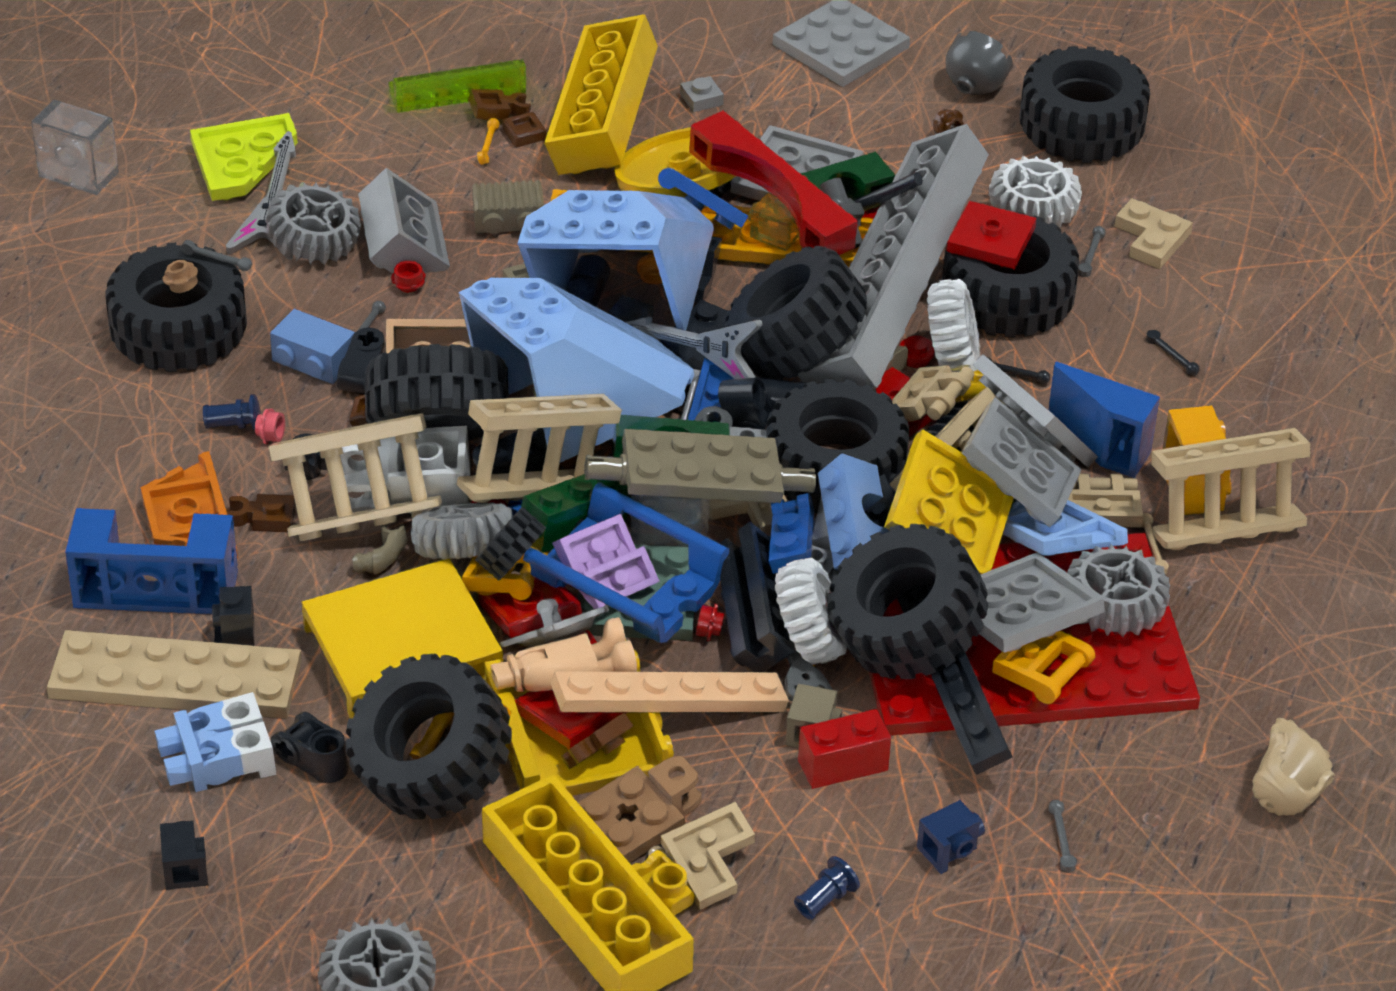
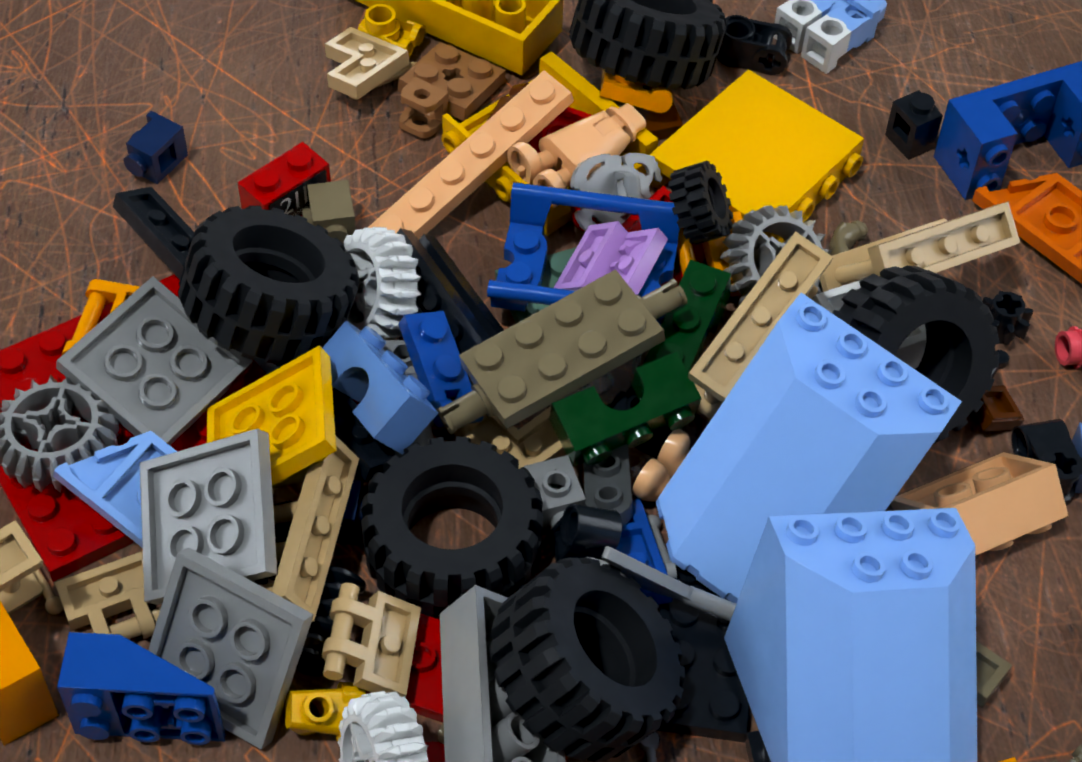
camera: 155 degrees right, 10 degrees up
(171, 672) = (863, 90): tan plate -> none
(266, 514) = (998, 263): reddish brown plate -> none
(709, 622) = (480, 282): red plate -> none
(832, 884) = (244, 79): dark blue pin -> none
(1067, 861) = (41, 180): dark grey hinge -> none

